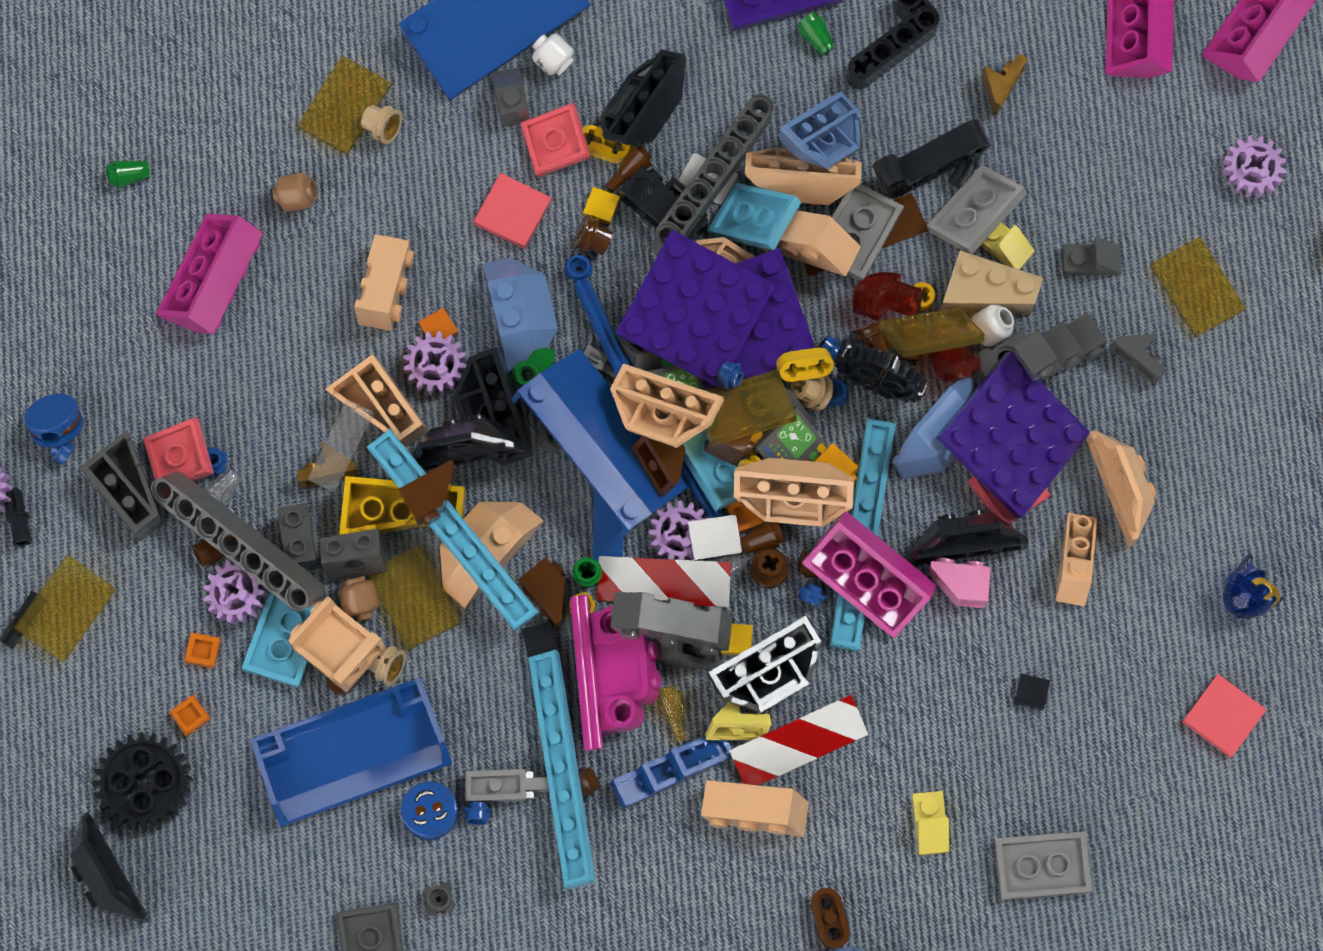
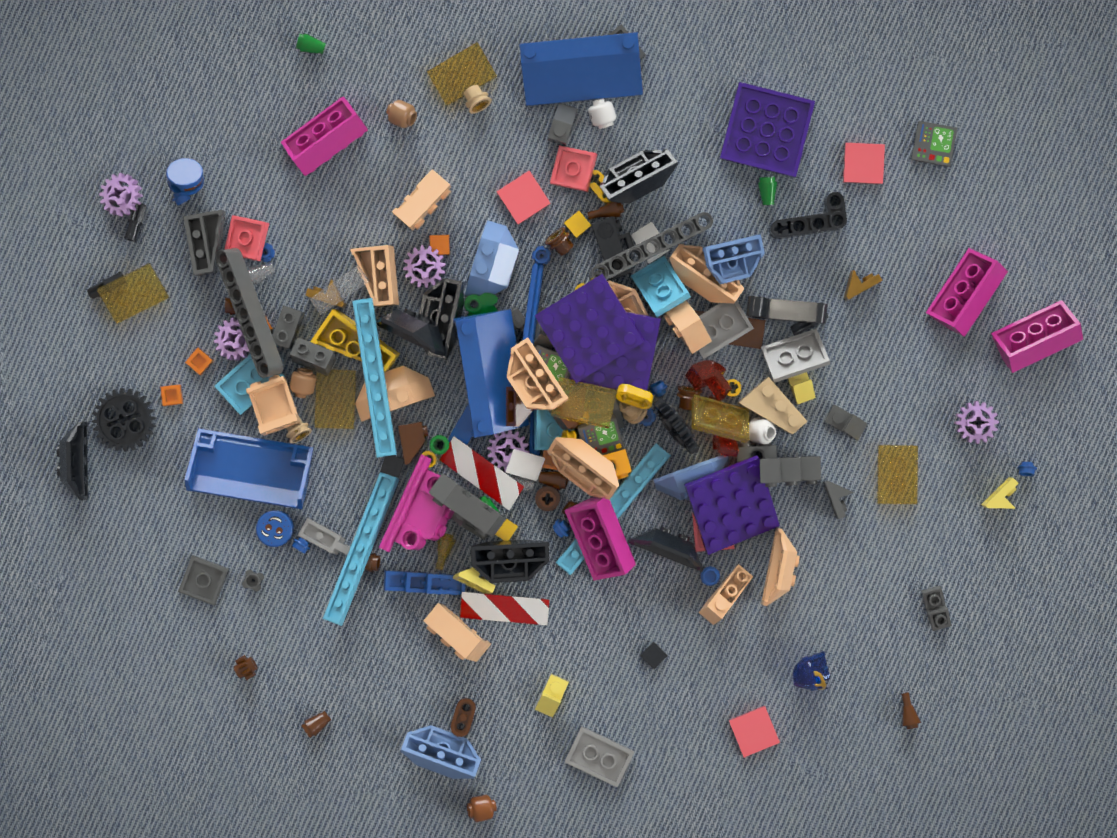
camera: 30 degrees right, 15 degrees up
(429, 494) = (370, 353): reddish brown slope -> none
(730, 375) = (586, 379): blue plate -> none
(962, 583) = (651, 572): bright pink slope -> none
(1041, 547) = (710, 576): none -> blue plate

